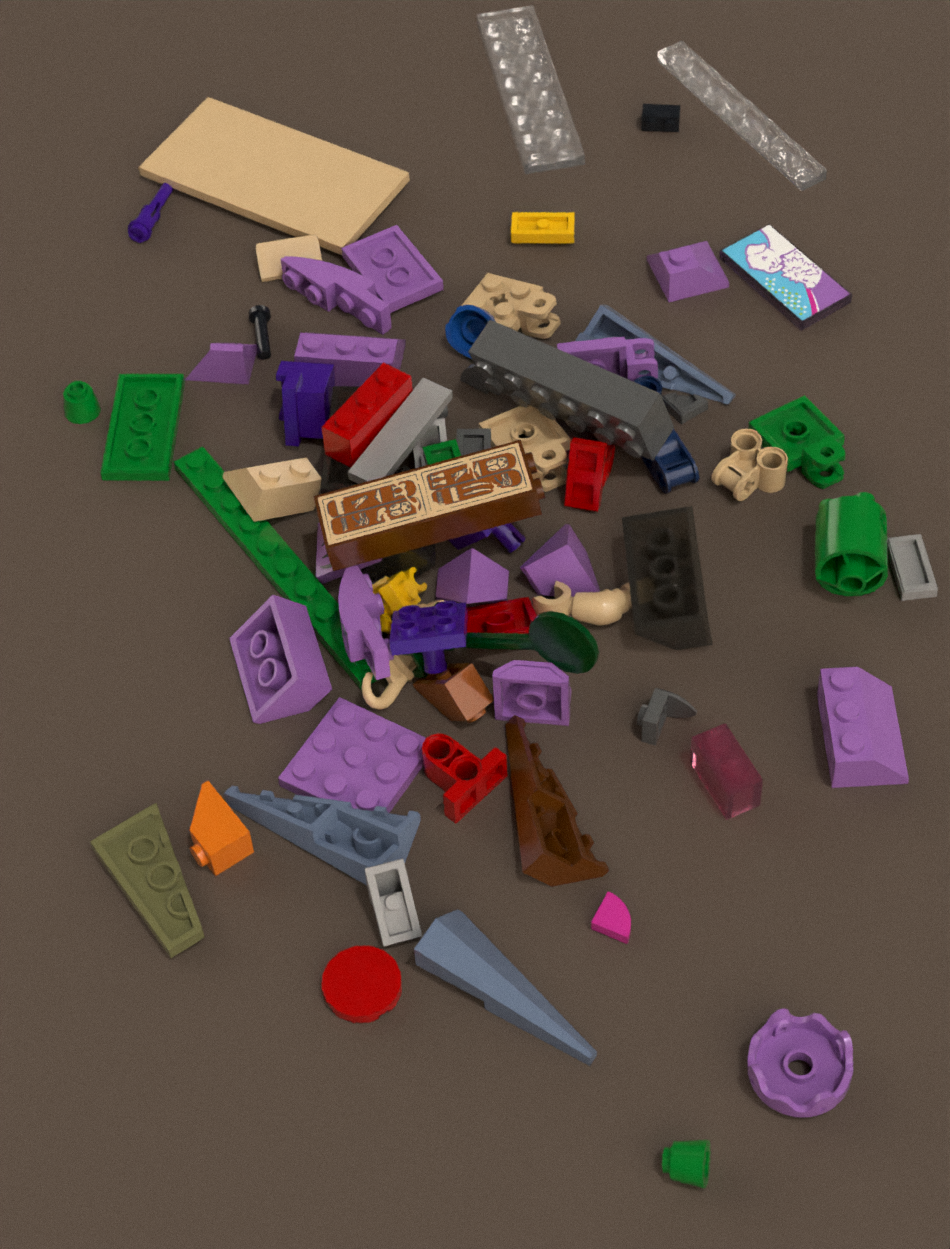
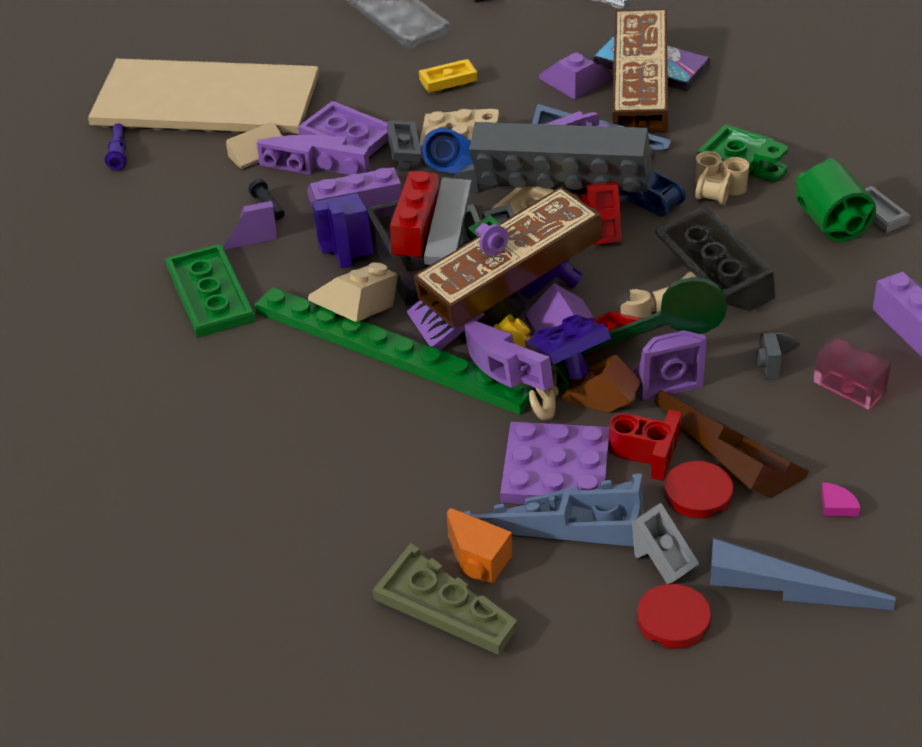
camera: 25 degrees left, 10 degrees down
(80, 403) = (143, 287): green hat -> none
(280, 661) = (443, 412): medium lavender slope -> none
(404, 485) = (492, 238): none -> medium lavender plate
(436, 306) = (403, 143): none -> dark grey plate
(480, 848) = (698, 489): none -> red tile
(563, 561) = (620, 276): medium lavender slope -> none
(752, 291) = (641, 69): none -> brick

